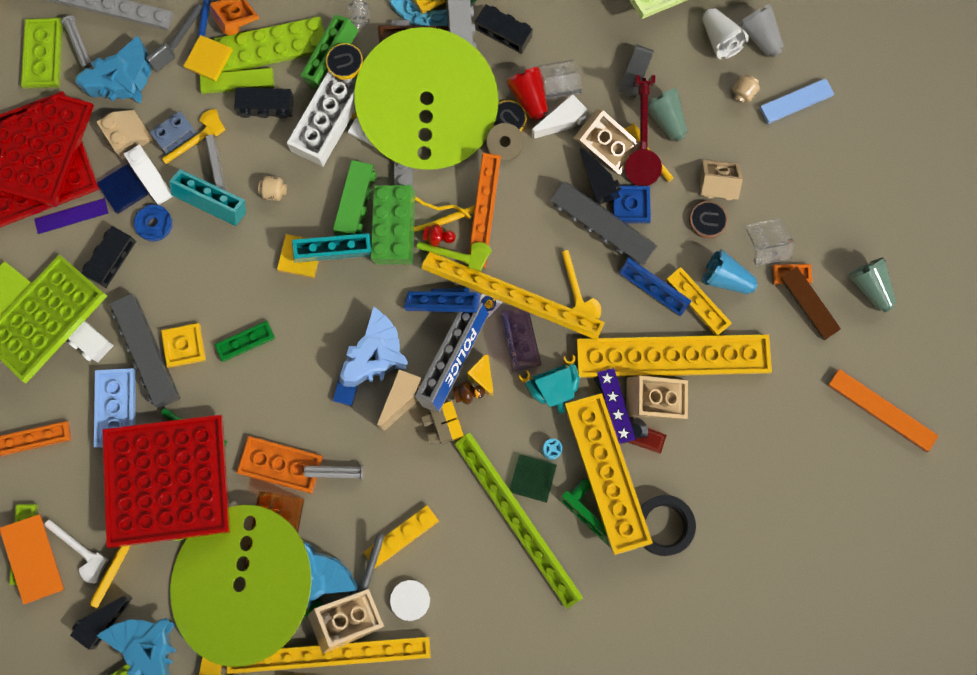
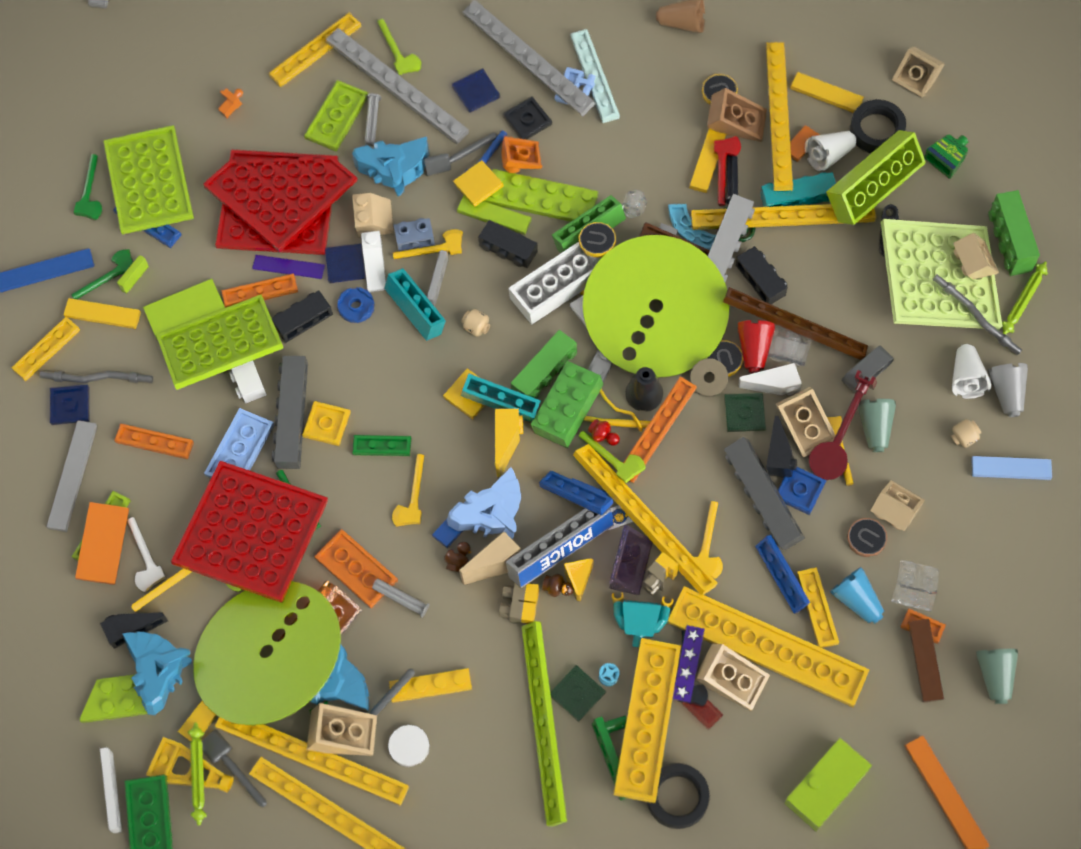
camera: 30 degrees right, 10 degrees down
(63, 245) = (268, 288): none -> orange tile
(304, 391) = (411, 515): none -> yellow piece
(353, 274) = (507, 436): none -> yellow slope
(366, 414) = (456, 561): none -> reddish brown animal
(454, 180) = (644, 390): none -> black cone
(550, 158) = (744, 412): none -> clear green tile
(550, 342) = (658, 572): none -> dark tan hips
(555, 58) = (795, 323): none -> reddish brown tile
(784, 451) = (828, 784): none -> lime brick

